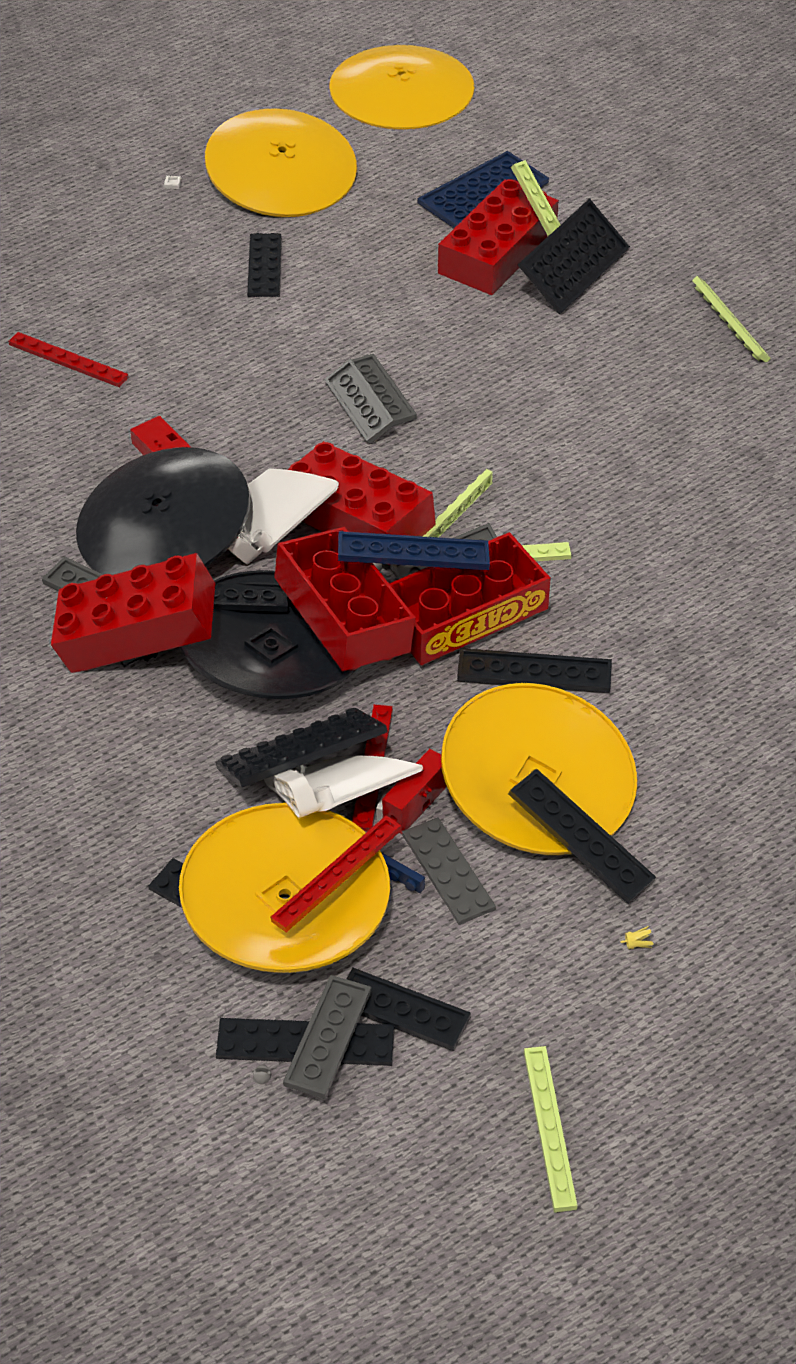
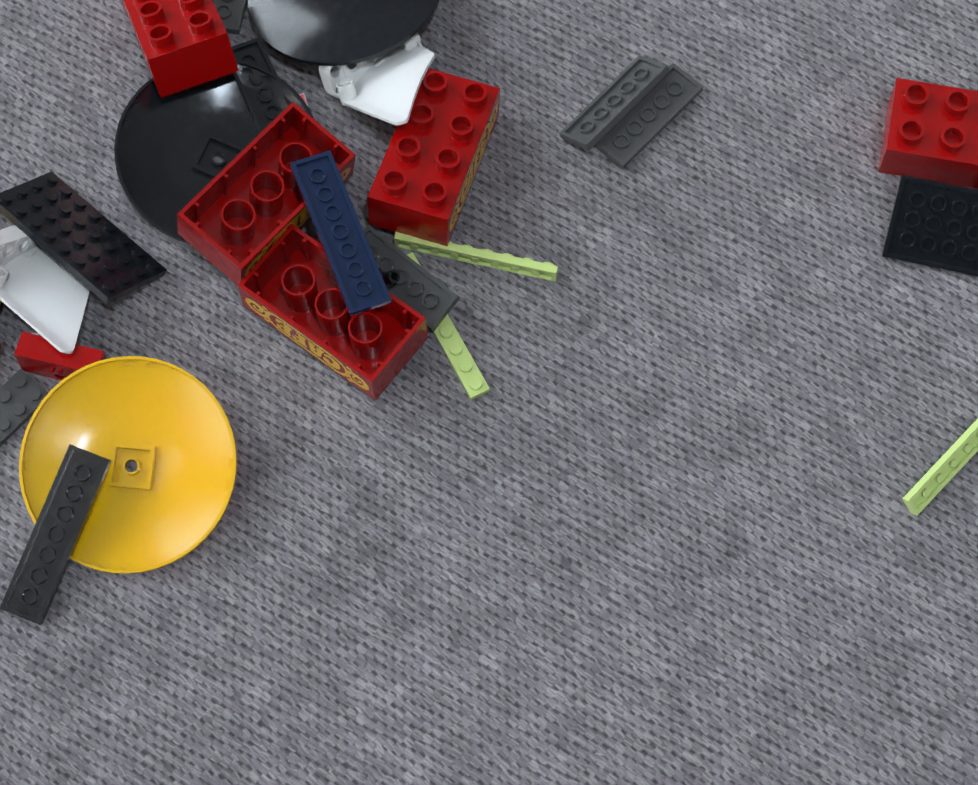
camera: 70 degrees right, 20 degrees up
(366, 803) = (125, 306): red plate -> none
(542, 669) = (283, 419): black plate -> none

